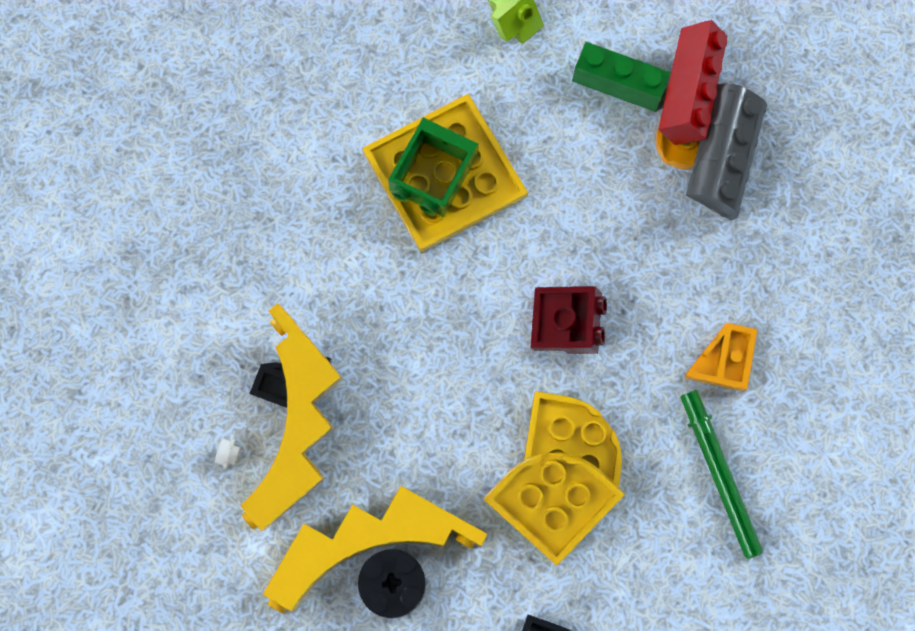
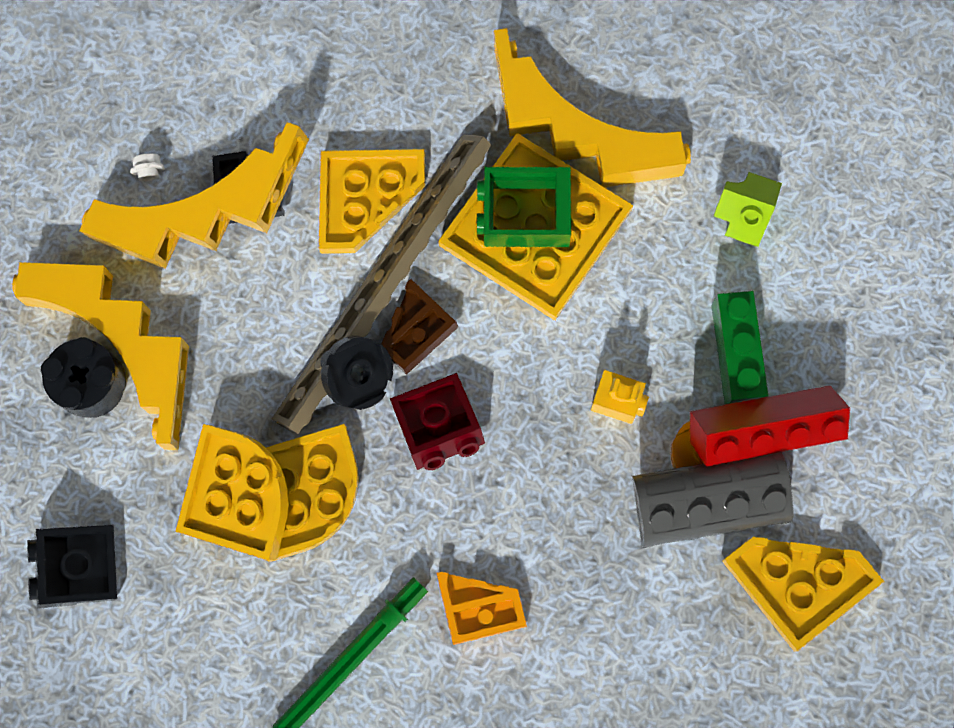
camera: 70 degrees right, 0 degrees up
(345, 123) = (620, 153): none -> yellow arch
(347, 288) = (364, 193): none -> yellow plate
(431, 310) = (386, 275): none -> dark tan plate
(482, 301) = (416, 328): none -> reddish brown wing
(489, 368) = (337, 369): none -> black plate
(614, 178) = (620, 397): none -> yellow brick
(812, 125) = (801, 584): none -> yellow plate

